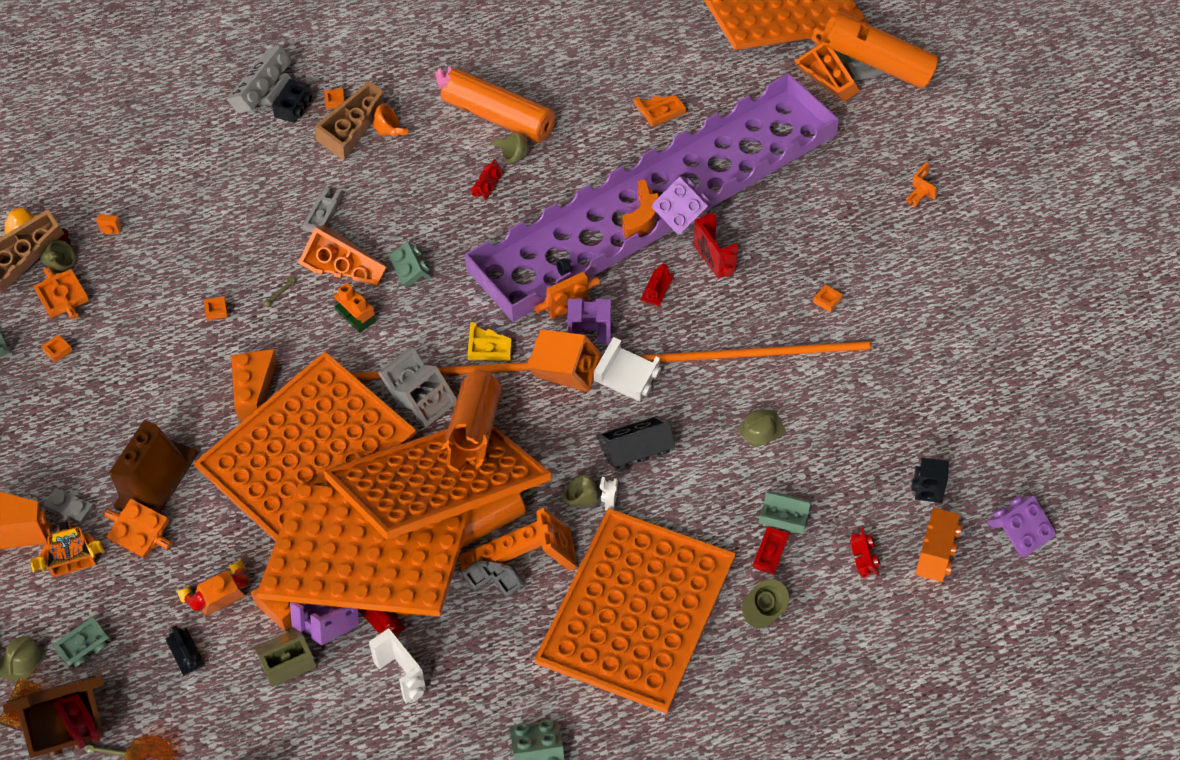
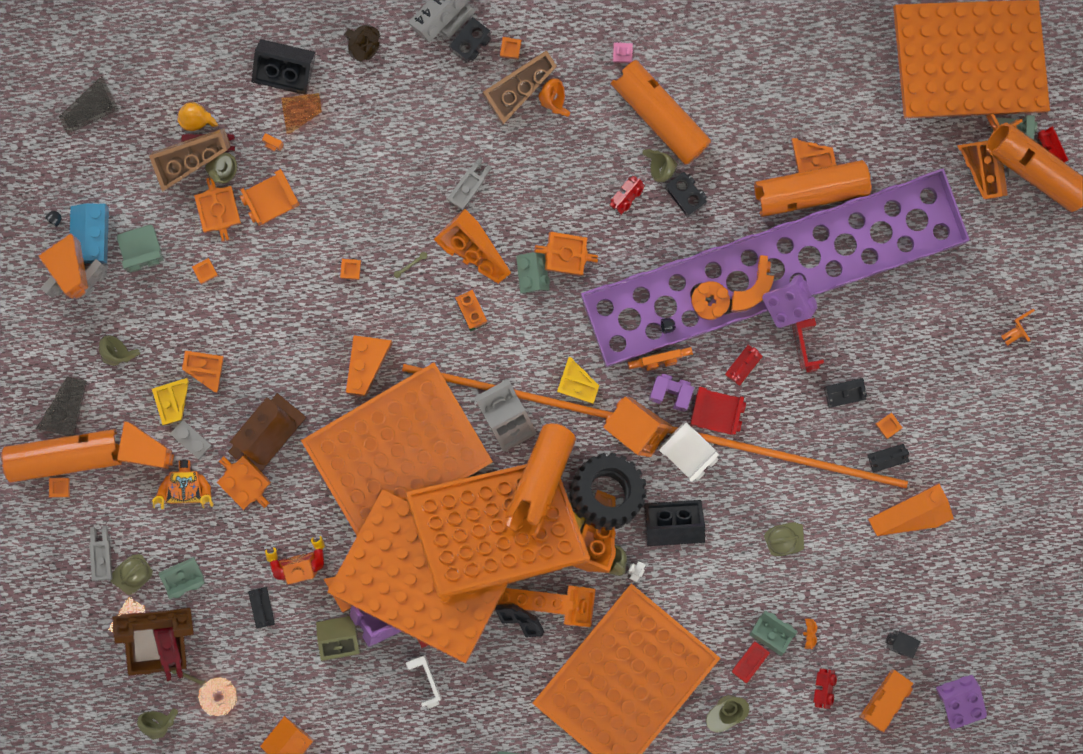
camera: 10 degrees right, 30 degrees up
(39, 473) = (171, 400): none -> yellow wing
(71, 434) = (204, 368): none -> orange wing
(107, 164) = (283, 66): none -> black slope
(117, 272) = (269, 198): none -> orange panel
(133, 194) = (300, 110): none -> clear orange wing
(184, 123) = (363, 42): none -> dark brown tile
(439, 238) = (566, 253): none -> orange plate
(545, 164) = (681, 197): none -> black brick
(557, 404) = (623, 473): none -> black tyre
(564, 481) = (600, 542): none -> orange wedge
(595, 228) = (701, 306): none -> orange plate
(645, 333) = (717, 411): none -> red panel
(661, 126) = (813, 188): none -> orange piece
(770, 281) = (845, 392): none -> black hinge
(828, 508) = (811, 637): none -> orange piece
(840, 326) = (888, 458): none -> black hinge
(893, 361) = (918, 512): none -> orange wedge

